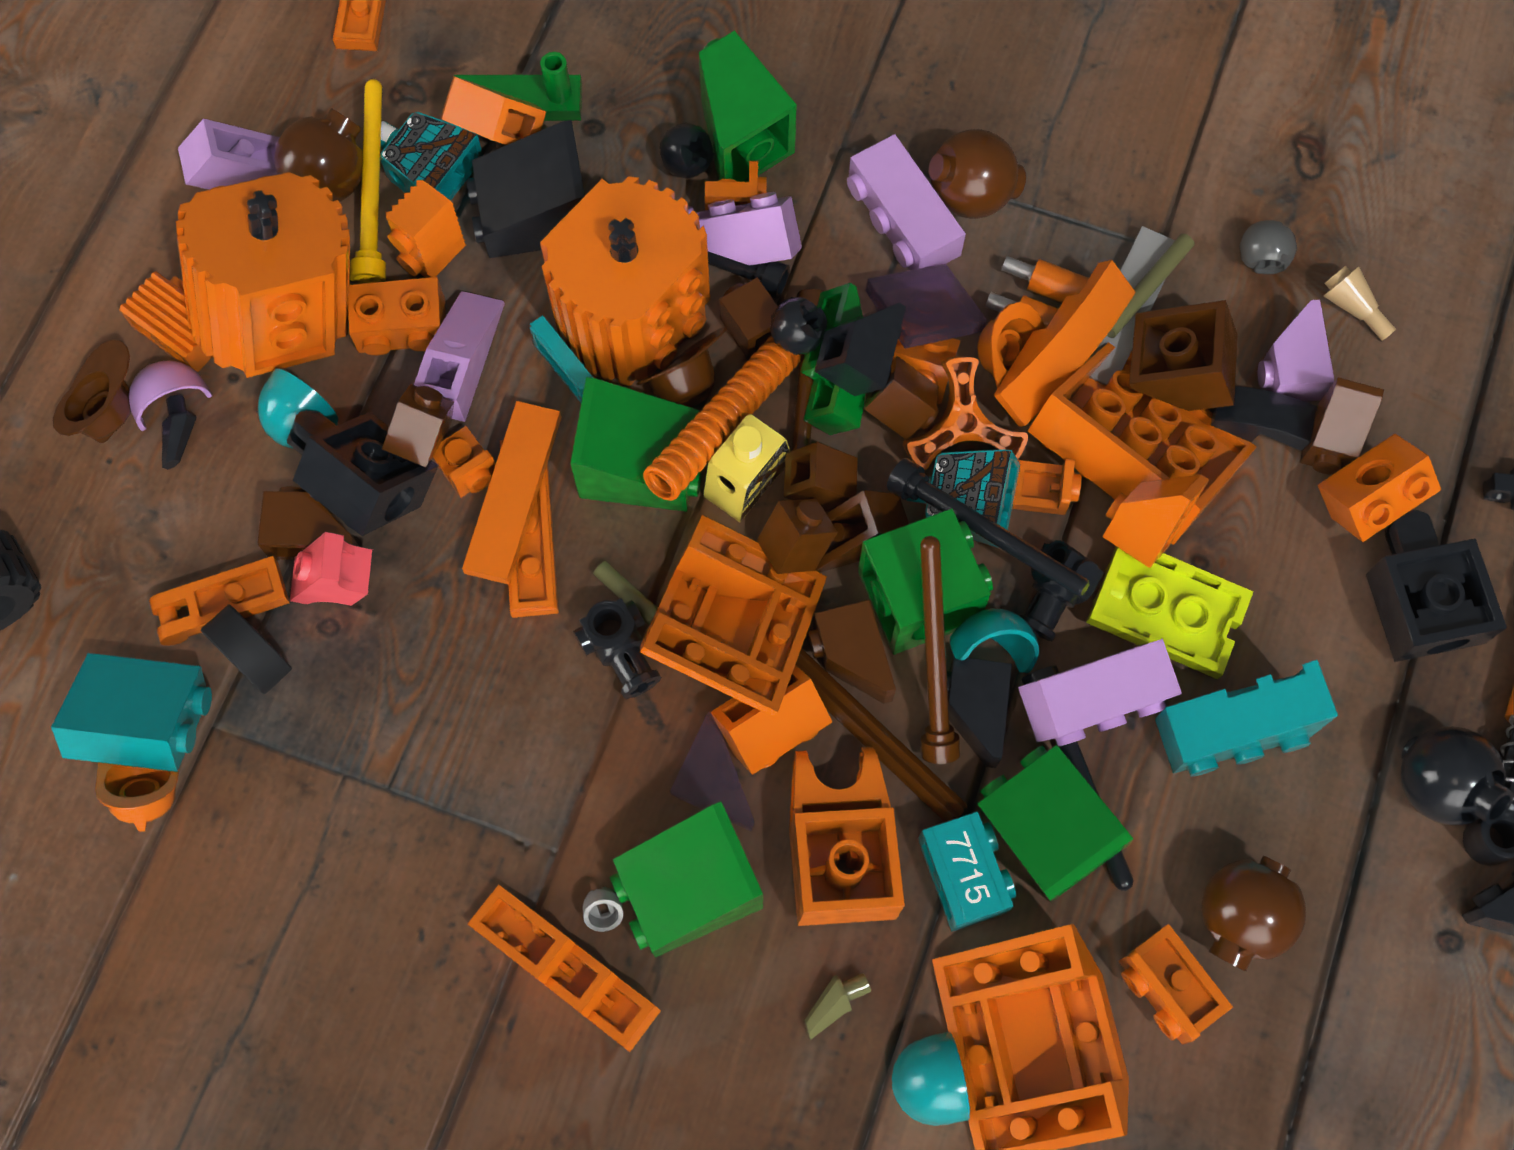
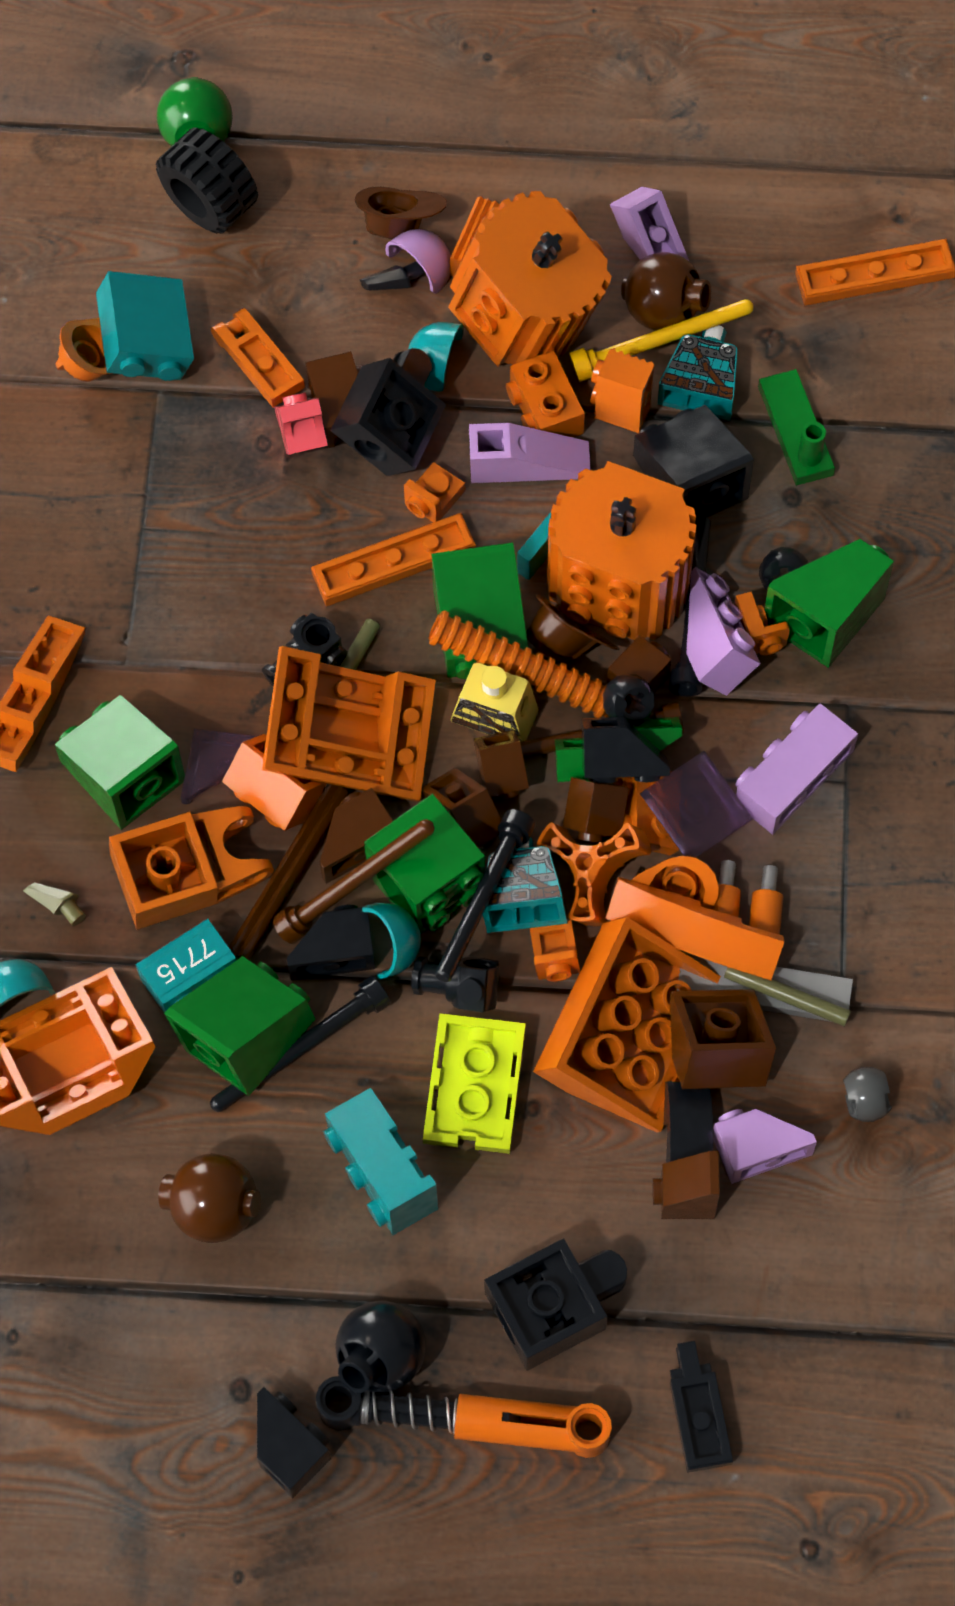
camera: 75 degrees right, 5 degrees down
(246, 649) = (216, 384): black tyre -> none
(419, 424) = (438, 440): reddish brown slope -> none
(491, 112) = (755, 406): orange slope -> none
(512, 493) = (411, 532): orange tile -> none
(592, 912) = (81, 702): light grey hinge -> none
(796, 535) = (439, 757): reddish brown brick -> none
(976, 173) = (844, 814): reddish brown brick -> none
(1100, 693) = (369, 1033): lavender brick -> none
(1152, 516) = (538, 1033): orange slope -> none
(1174, 986) = (134, 1155): orange bracket -> none
(1353, 294) = (846, 1183): tan cone -> none
(1379, 487) = (638, 1229): orange brick -> none

